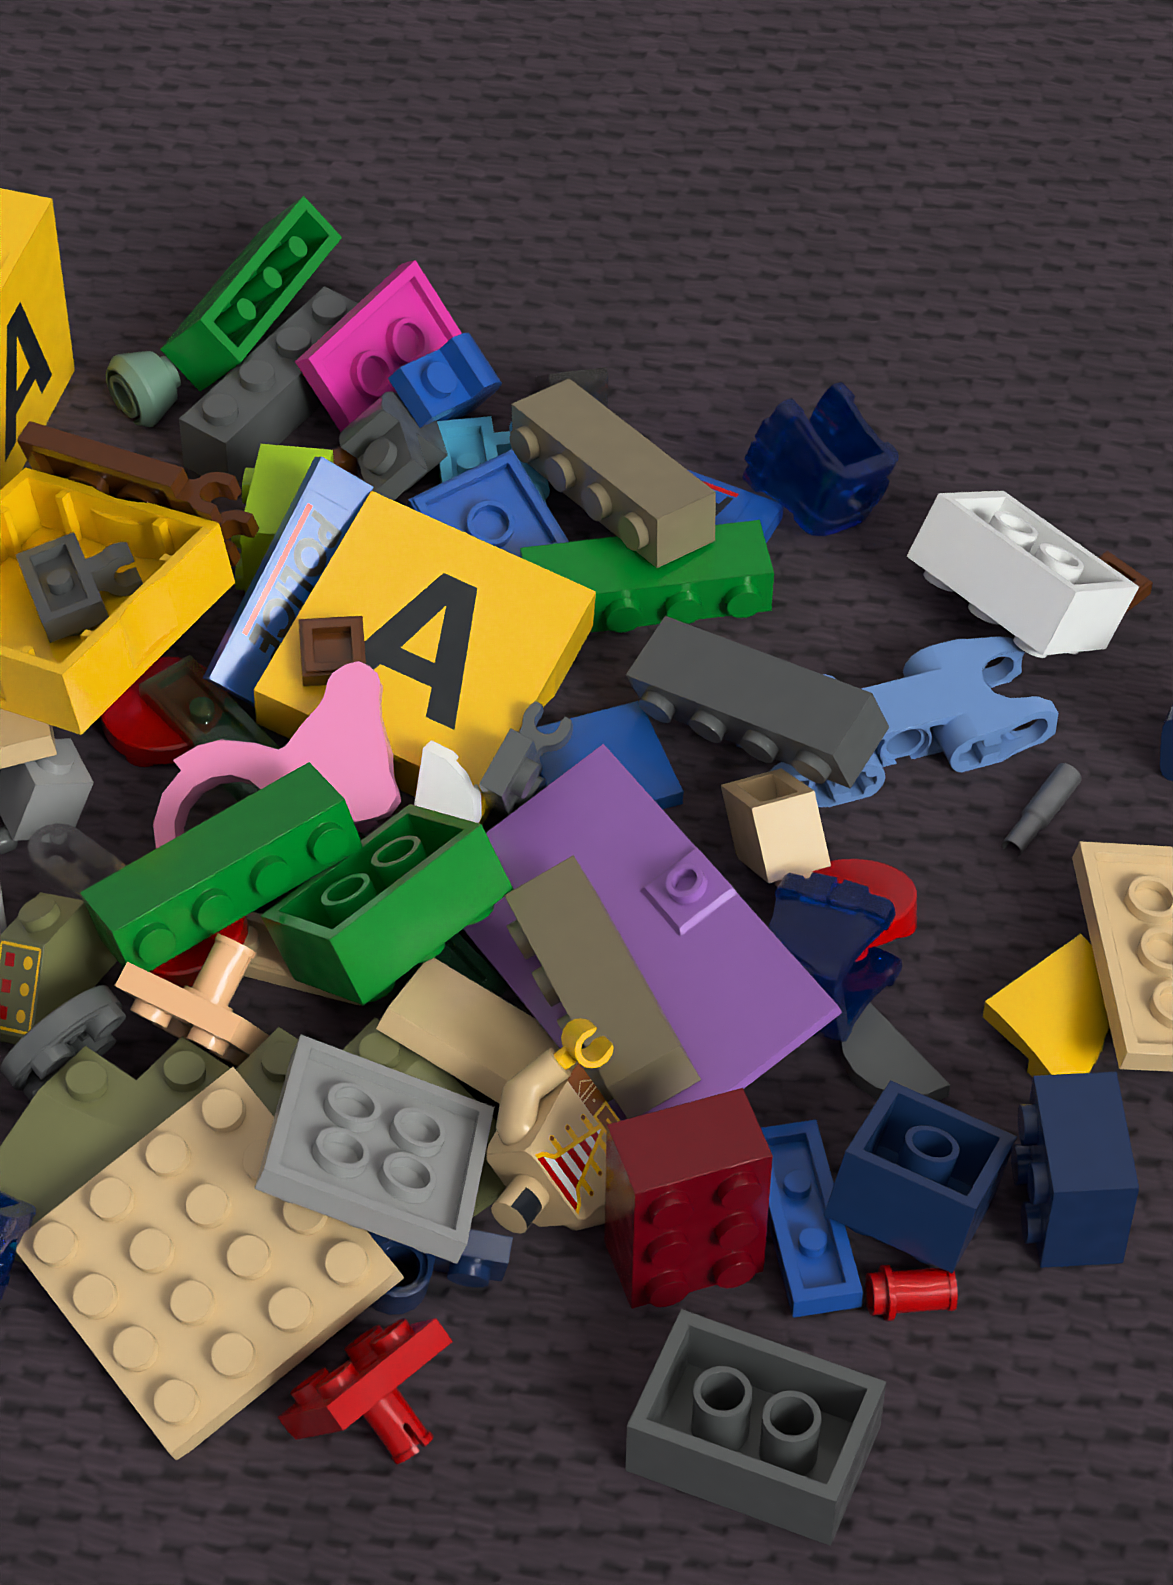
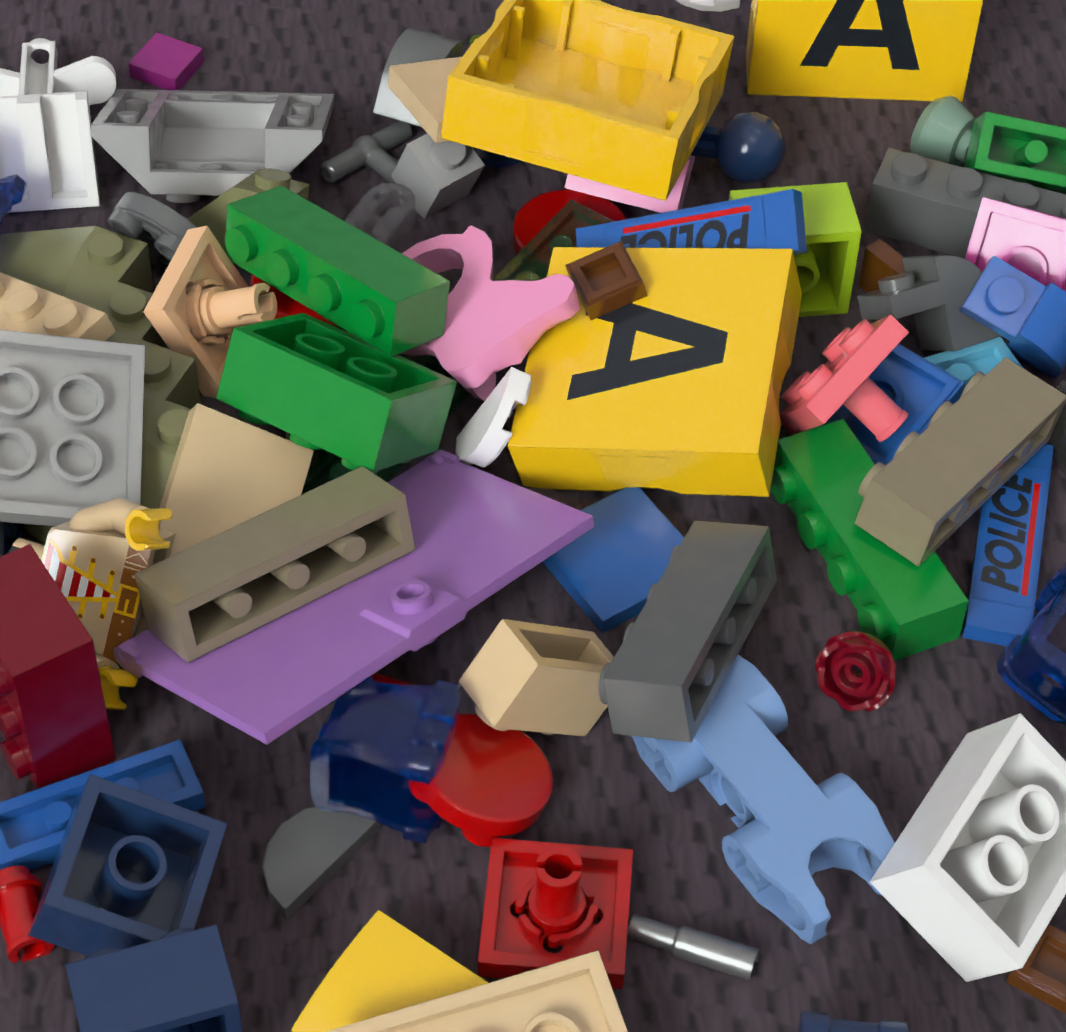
camera: 75 degrees right, 0 degrees up
(68, 585) = (610, 87): dark grey plate -> none
(137, 478) = (724, 104): reddish brown tile -> none
(506, 504) = (847, 382): none -> coral plate
(516, 767) = (542, 462): dark grey plate -> none
(795, 623) = (842, 682): none -> dark red plate
(1001, 873) = (558, 889): none -> red plate

